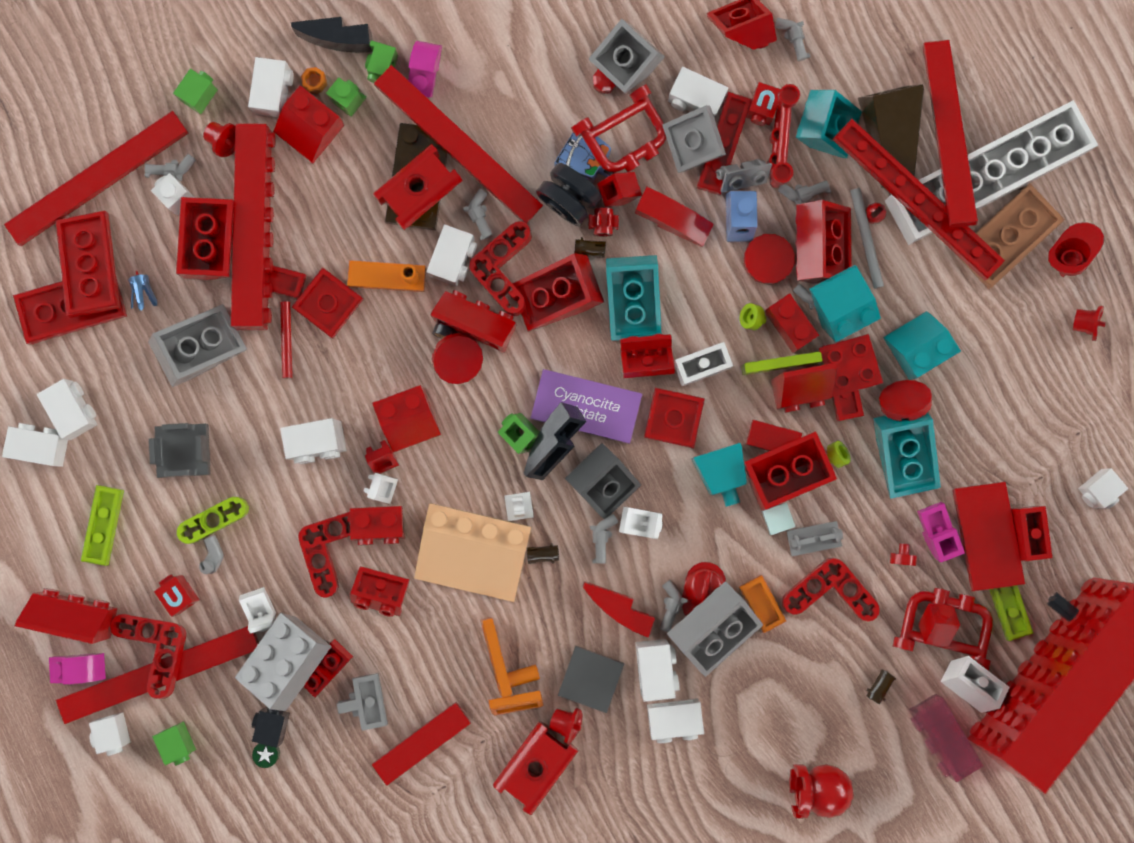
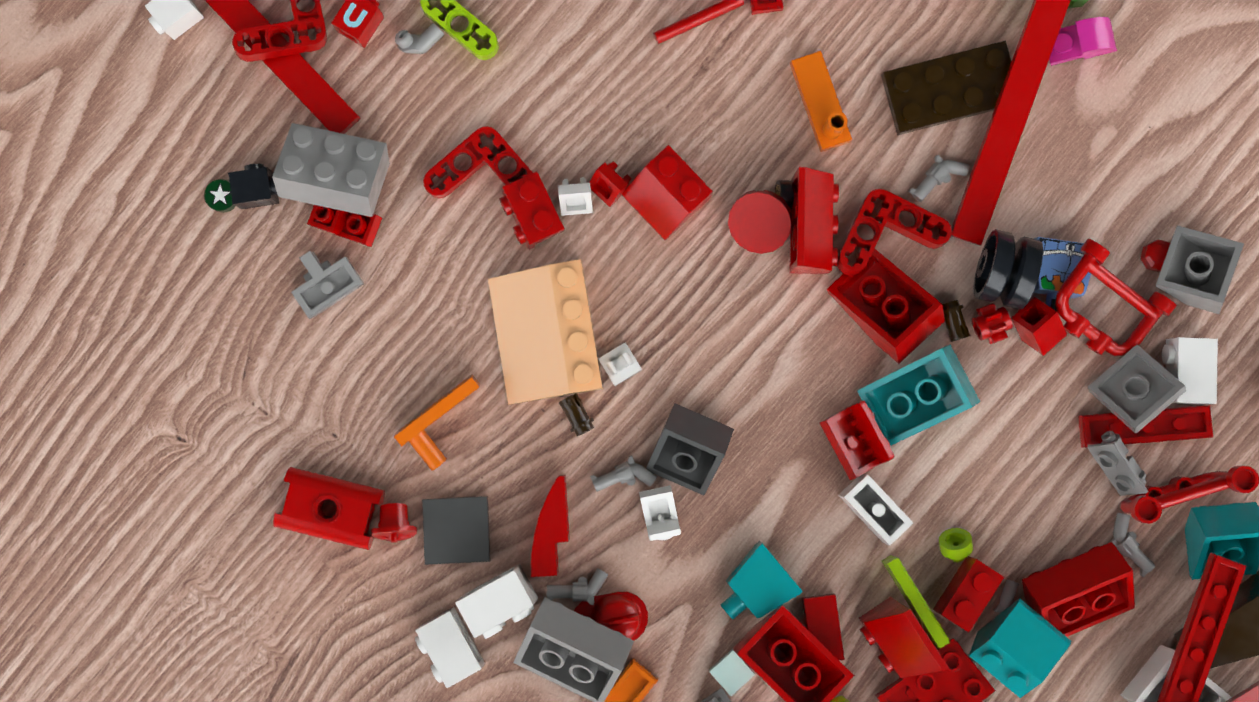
camera: 70 degrees right, 0 degrees up
(174, 744) = (190, 89): bright green brick -> none
(258, 610) = (379, 117): white bracket -> none
(312, 440) = (597, 96): white brick -> none
(327, 303) = (761, 47): red tile -> none
(379, 591) = (456, 245): red bracket -> none
(421, 743) = (304, 366): red tile -> none
(423, 169) = (963, 91): red piece -> none
(451, 255) = (876, 165): white brick -> none
(511, 434) = (698, 321): bright green brick -> none
(516, 703) = (393, 455): orange tile -> none
(554, 441) = (712, 372): black slope -> none
(606, 408) = (768, 393): medium lavender tile -> none
(673, 217) = (1033, 403): red slope -> none
(674, 418) = (798, 501): red tile -> none
(741, 214) = (1073, 481): medium blue torso -> none
(763, 104) = (1213, 454): red brick -> none
(769, 259) = (1032, 535): red tile -> none
(867, 238) = (1106, 641): light grey bar -> none
(873, 207) = (1145, 633): red hinge -> none

